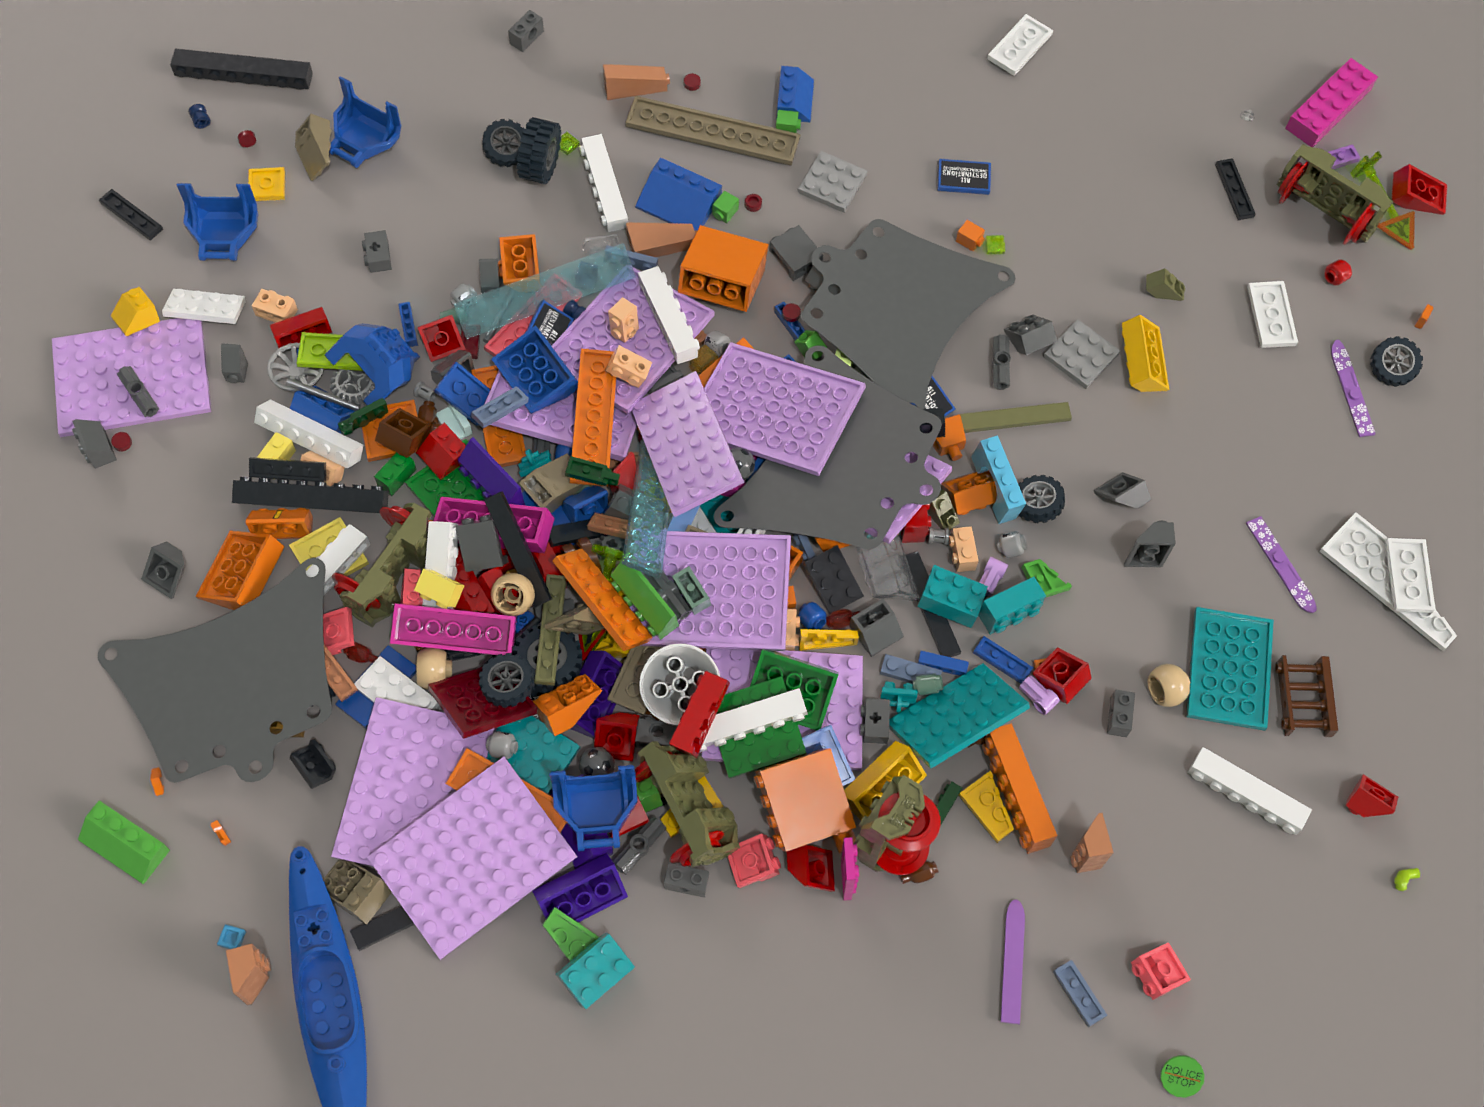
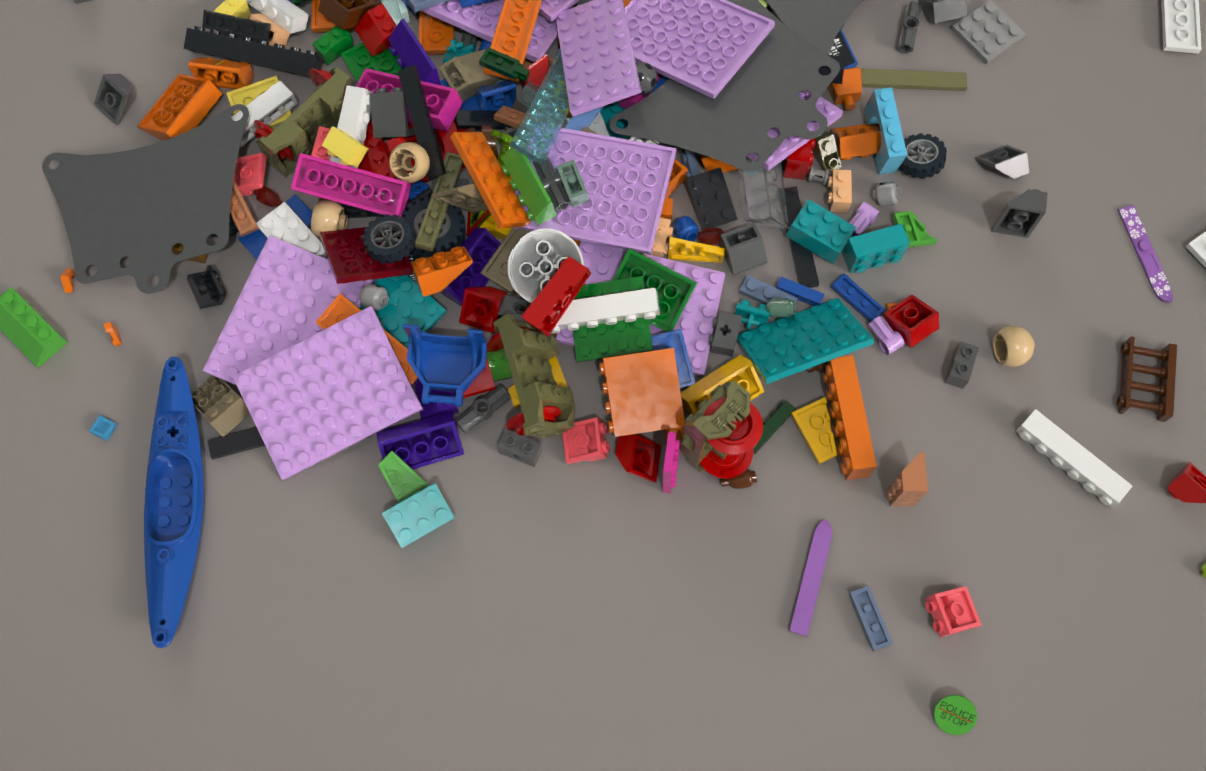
camera: 15 degrees right, 5 degrees up
(248, 971) = (104, 460): nougat slope -> none
(596, 762) = (457, 325): dark grey piece -> none
(1144, 355) = (1049, 40): yellow slope -> none
(1230, 668) = (1077, 341): teal plate -> none

